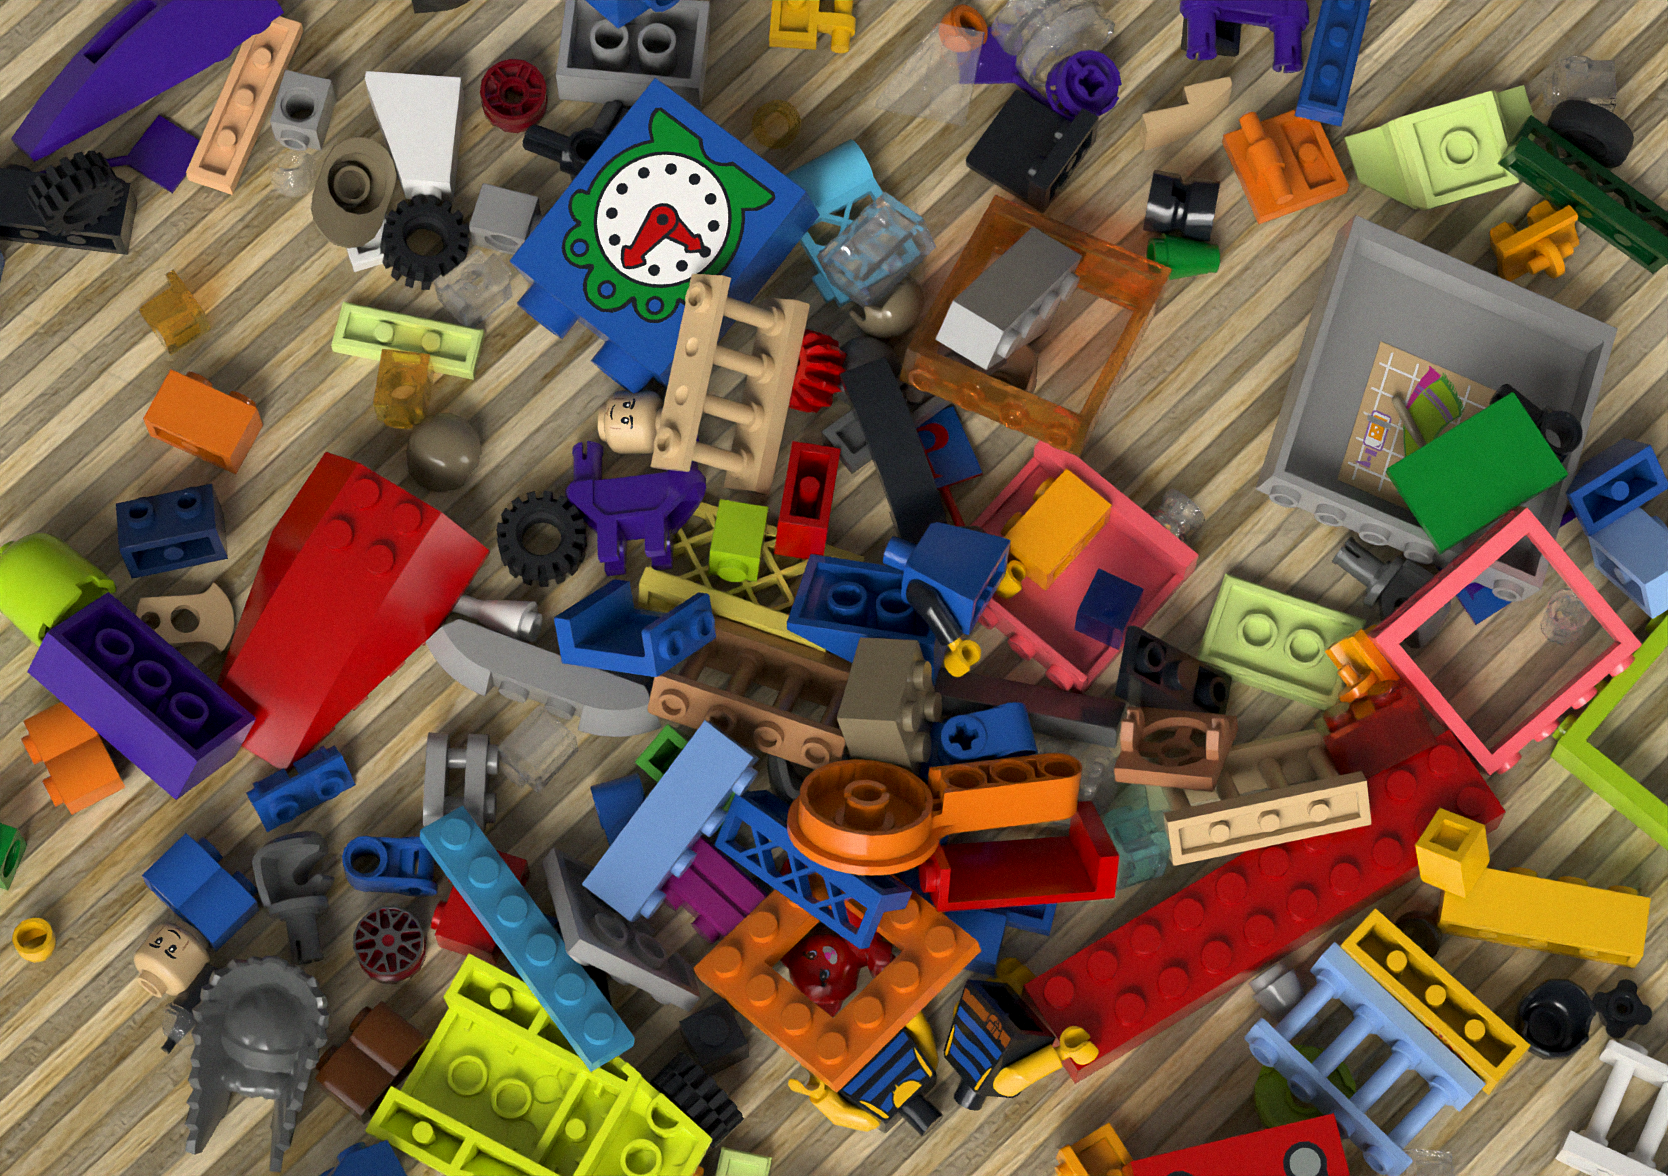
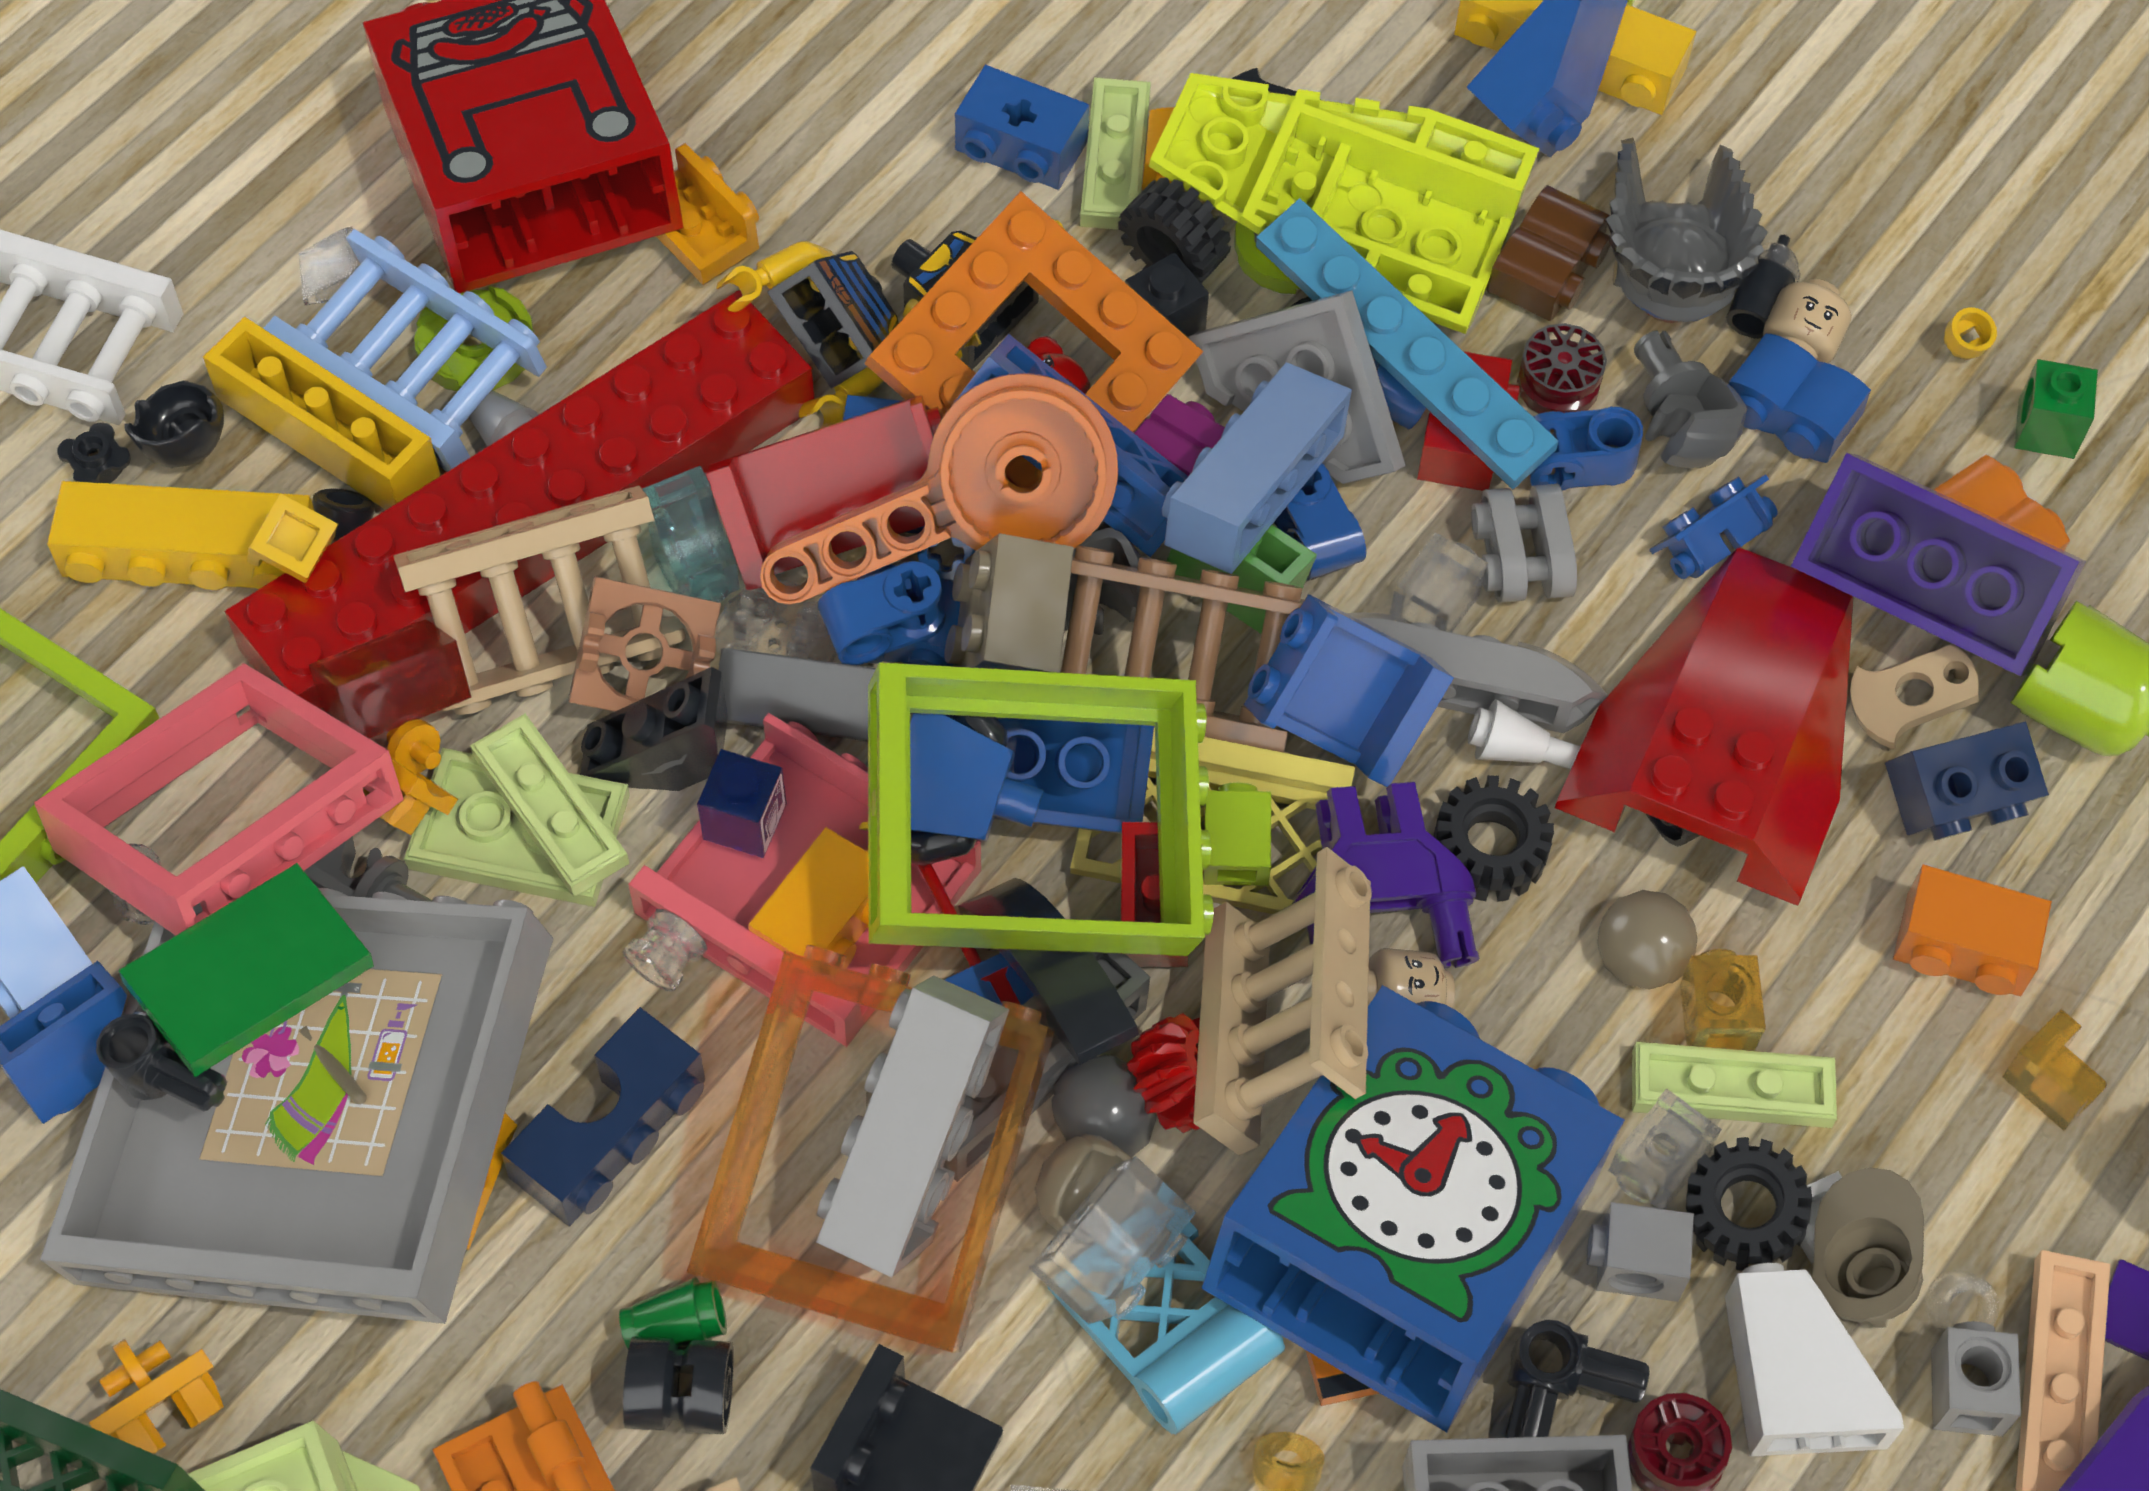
camera: 170 degrees right, 10 degrees down
(893, 428) = (1038, 695): none -> lime window
(1249, 369) = (573, 1163): none -> dark blue arch
(1255, 643) = (549, 805): none -> yellowish green tile

